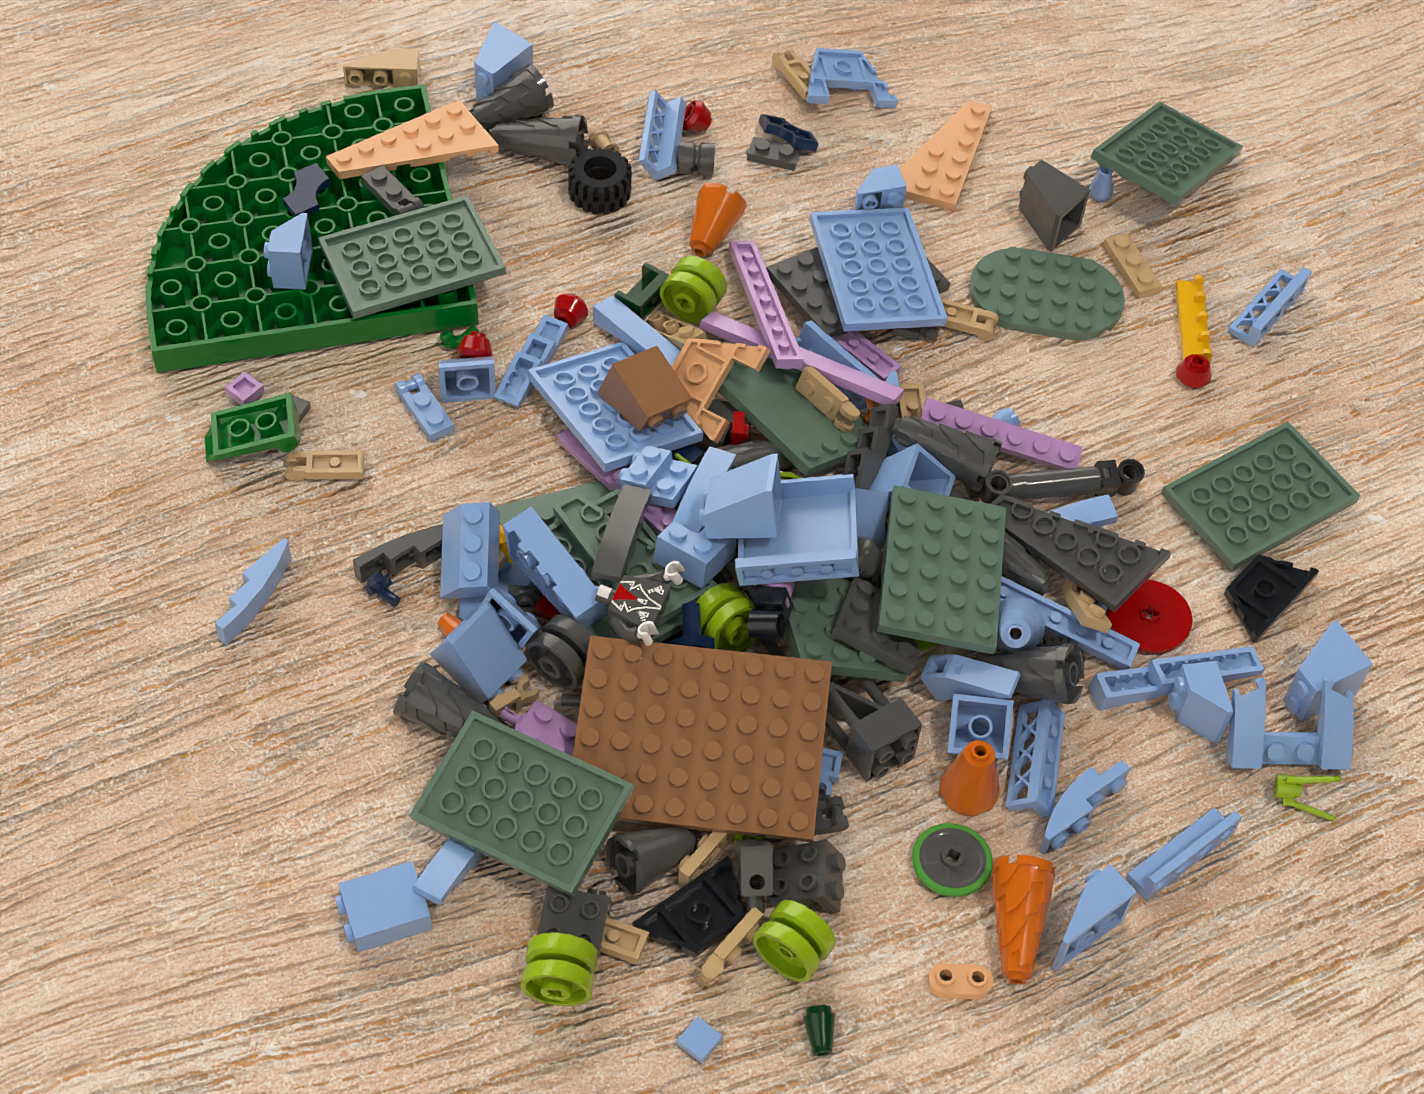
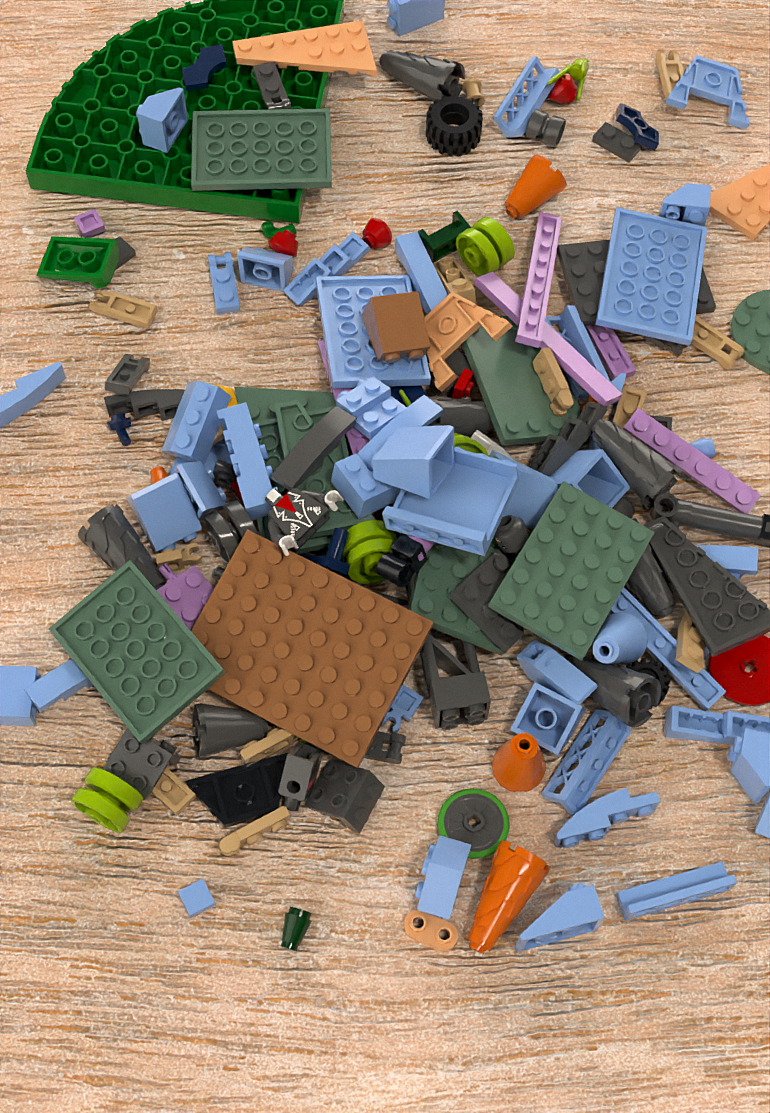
camera: 25 degrees right, 10 degrees up
(367, 529) = (126, 374): none -> dark grey plate
(514, 99) = (410, 33): dark grey cone -> none
(703, 92) = (578, 72): none -> lime plant
(794, 940) = (307, 845): lime wheel -> none
(954, 919) = (443, 873): none -> light blue brick

